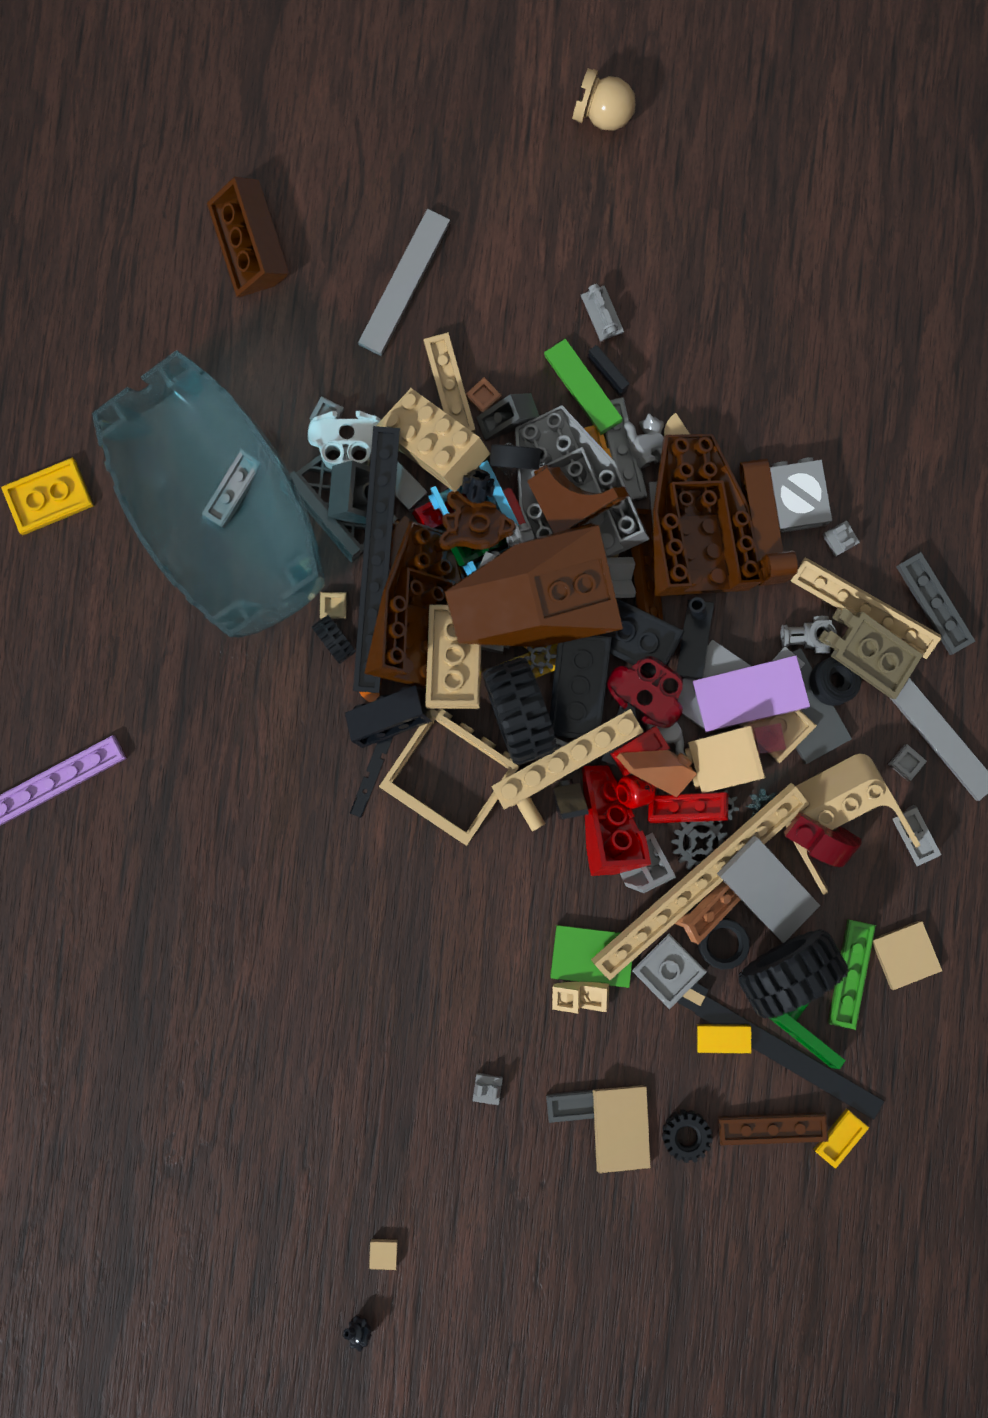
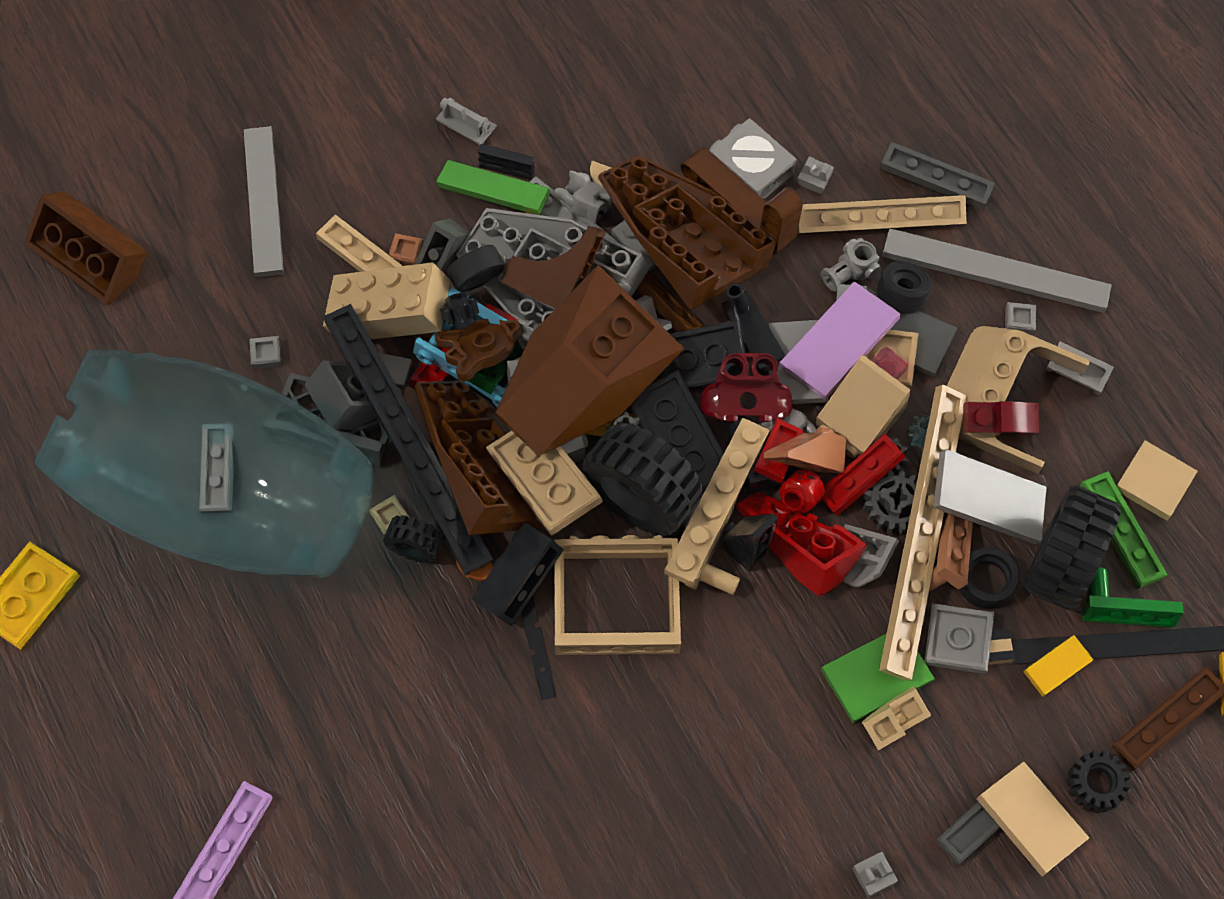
camera: 40 degrees left, 20 degrees down
(325, 430) = (275, 365): white piece -> none
(872, 652) = (915, 241): dark tan tile -> none

